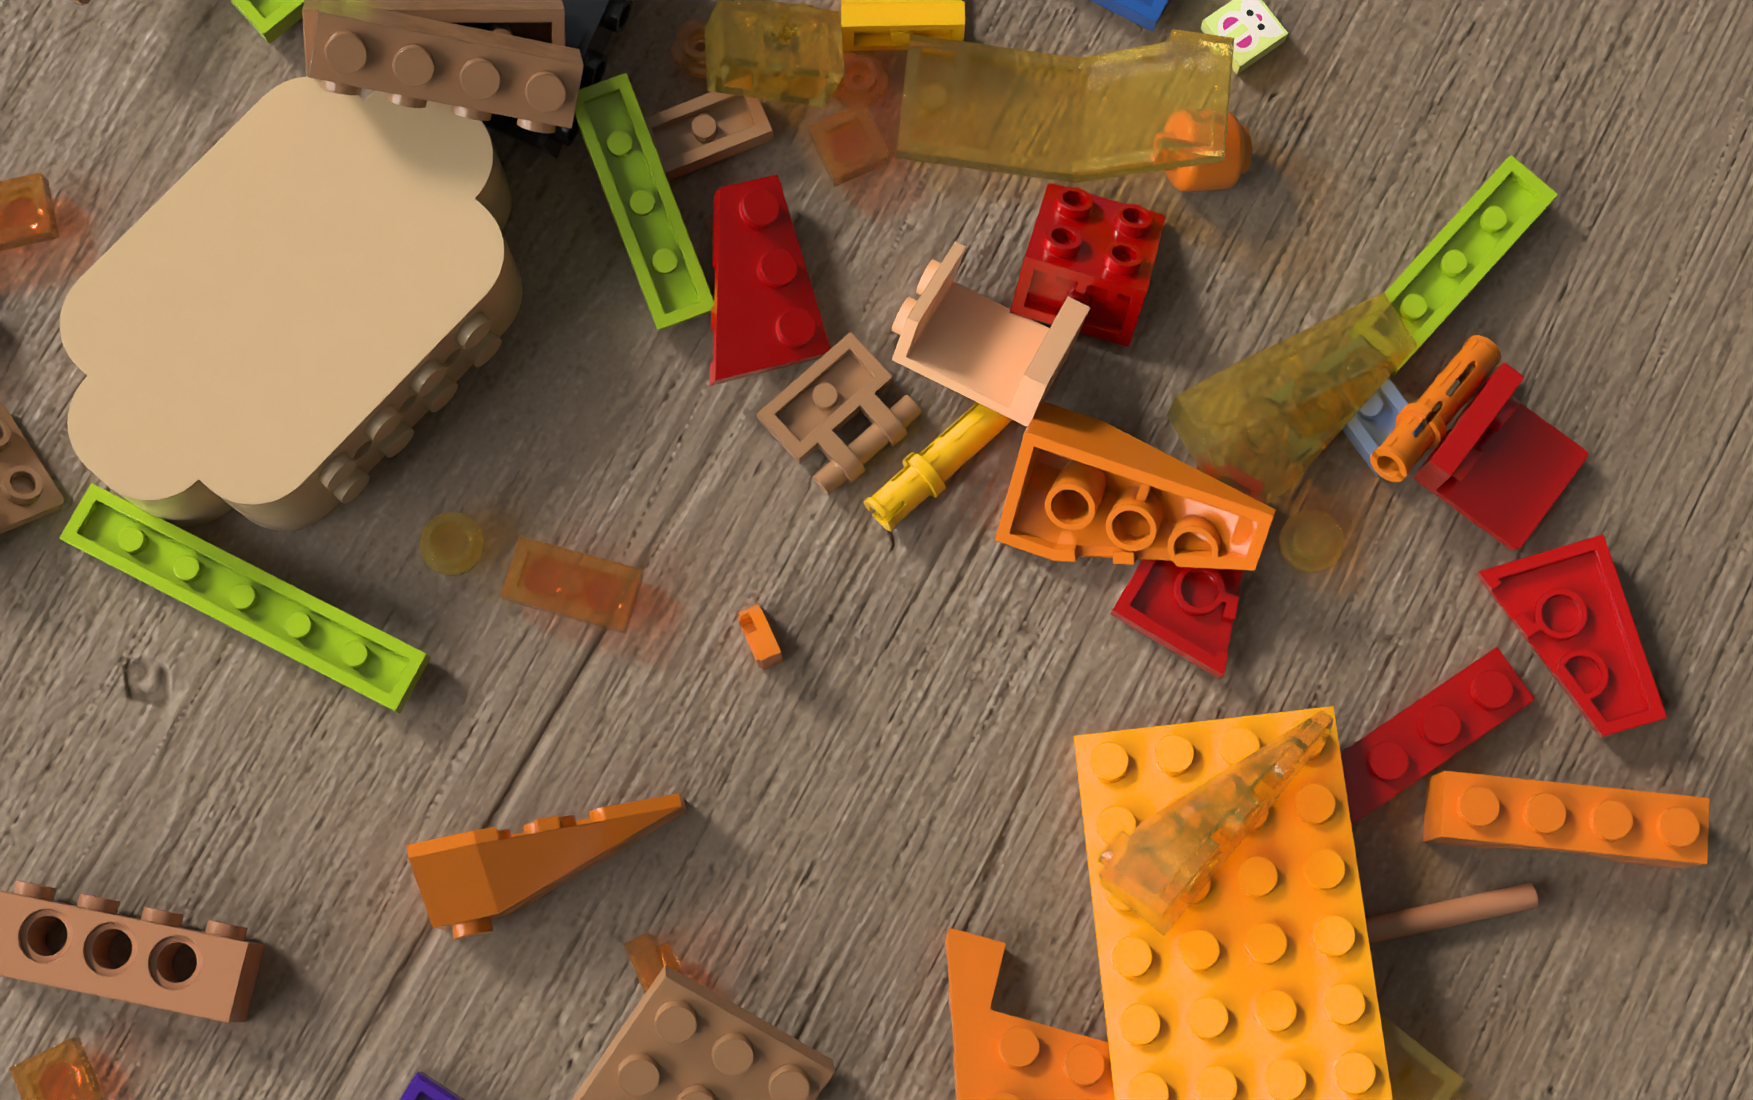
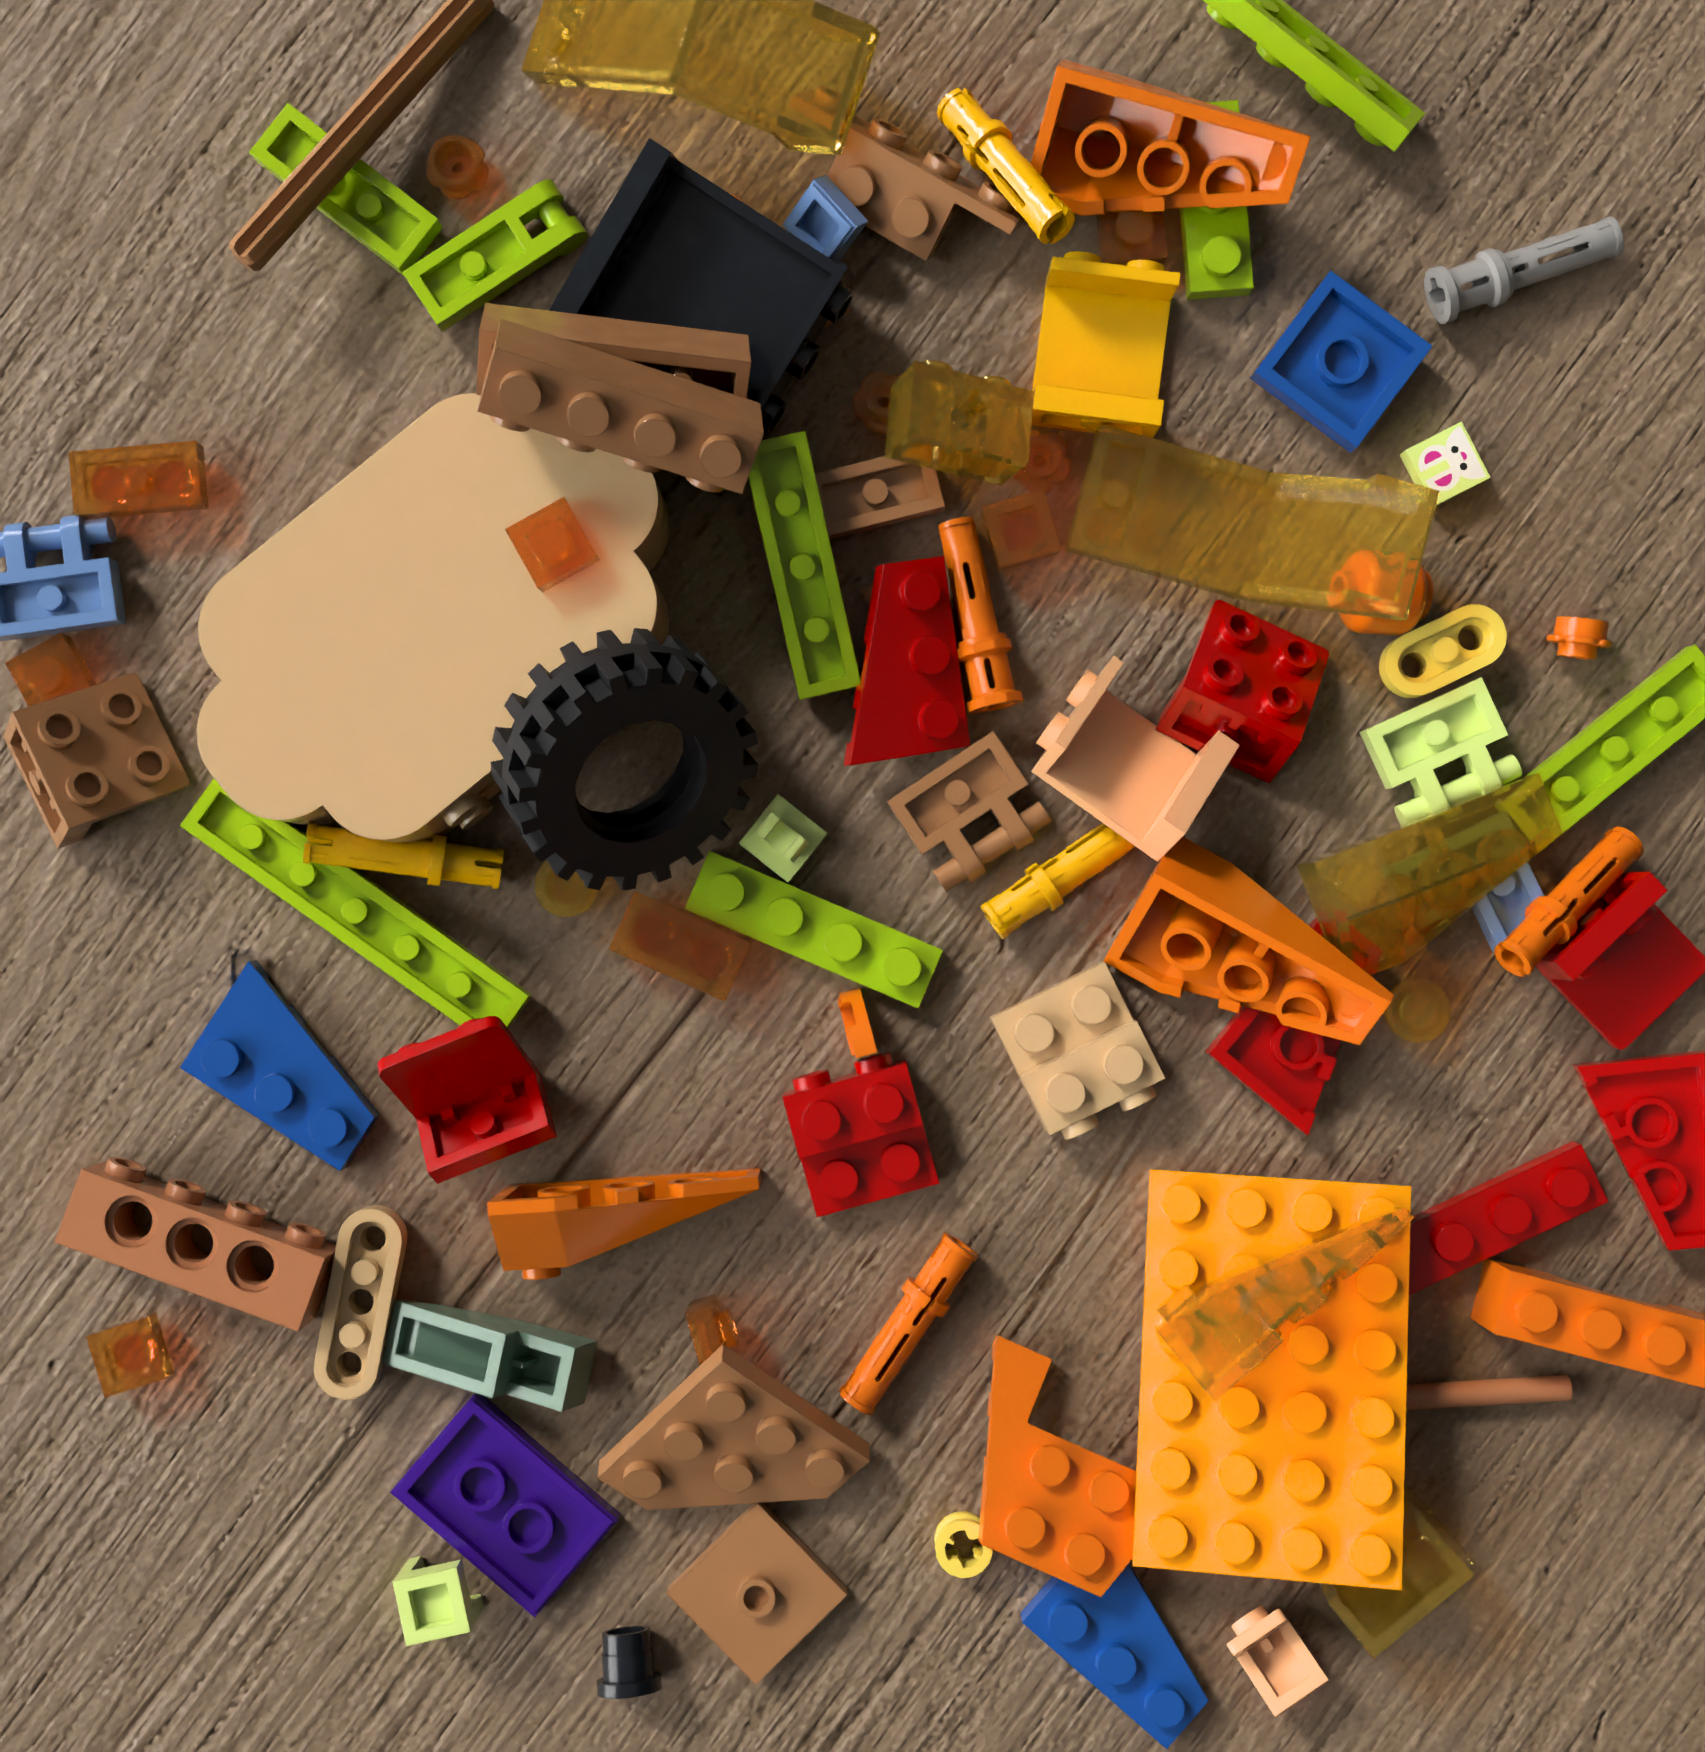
camera: 10 degrees right, 10 degrees up
(182, 771) = (279, 1072): none -> blue wing
(274, 1019) = (345, 1324): none -> tan plate
(297, 535) = (416, 858): none -> yellow pin
(376, 756) = (470, 1096): none -> red bracket
(396, 200) = (552, 544): none -> clear orange plate
(429, 354) = (590, 701): none -> black tyre
(429, 1025) = (490, 1354): none -> sand green slope
(661, 468) = (783, 838): none -> yellowish green tile
(704, 551) = (813, 929): none -> lime plate
(777, 745) = (859, 1134): none -> red plate
(827, 251) = (977, 620): none -> orange pin
(854, 929) = (922, 1302): none -> orange pin
(983, 630) = (1078, 1051): none -> tan plate
(1269, 199) = (1440, 653): none -> light yellow plate
(1281, 274) = (1433, 735): none -> yellowish green plate
(1401, 166) = (1579, 637): none -> orange plate

